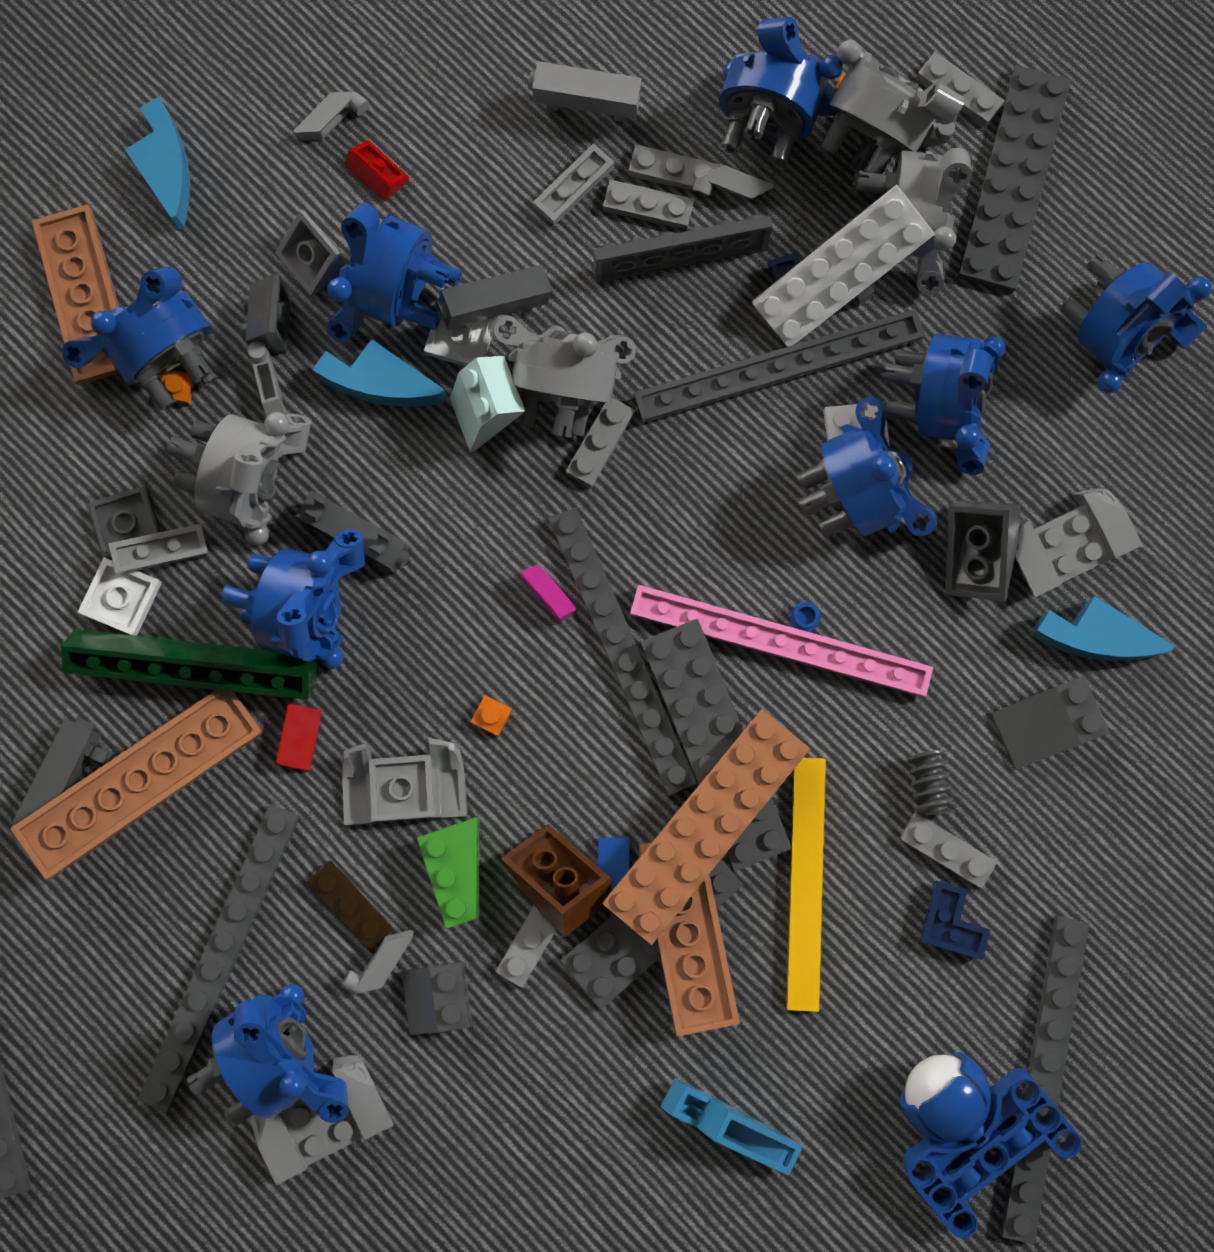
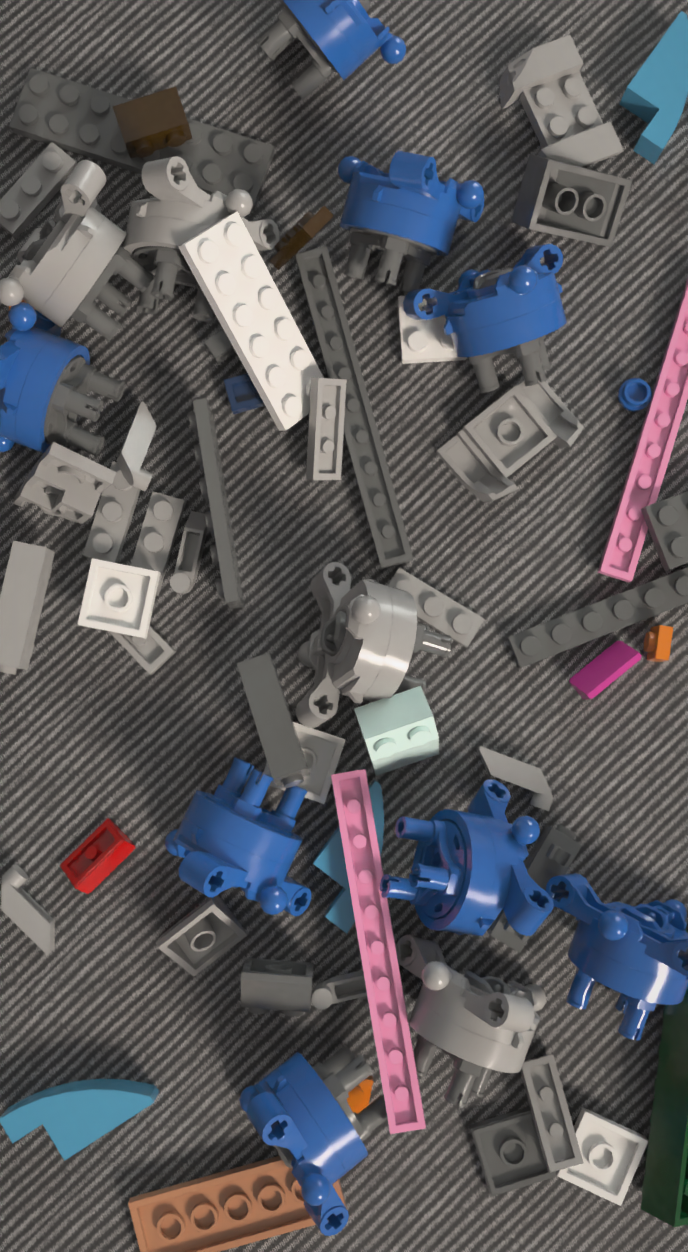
camera: 90 degrees left, 5 degrees up
(298, 389) = (378, 953): none -> bright pink plate
(370, 458) = (472, 868): none -> blue piece
(453, 518) = (518, 774): none -> light grey piece
(573, 638) = (658, 643): none -> orange plate
(596, 170) = (119, 598): none -> white plate
(627, 229) = (189, 553): none -> light grey piece
(694, 122) = (65, 484): none -> light grey slope
(755, 338) = (326, 428): none -> light grey plate
(760, 504) = (507, 438): none -> light grey piece
(926, 303) = (299, 236): none -> dark brown plate
(1023, 179) = (153, 123): none -> dark brown brick

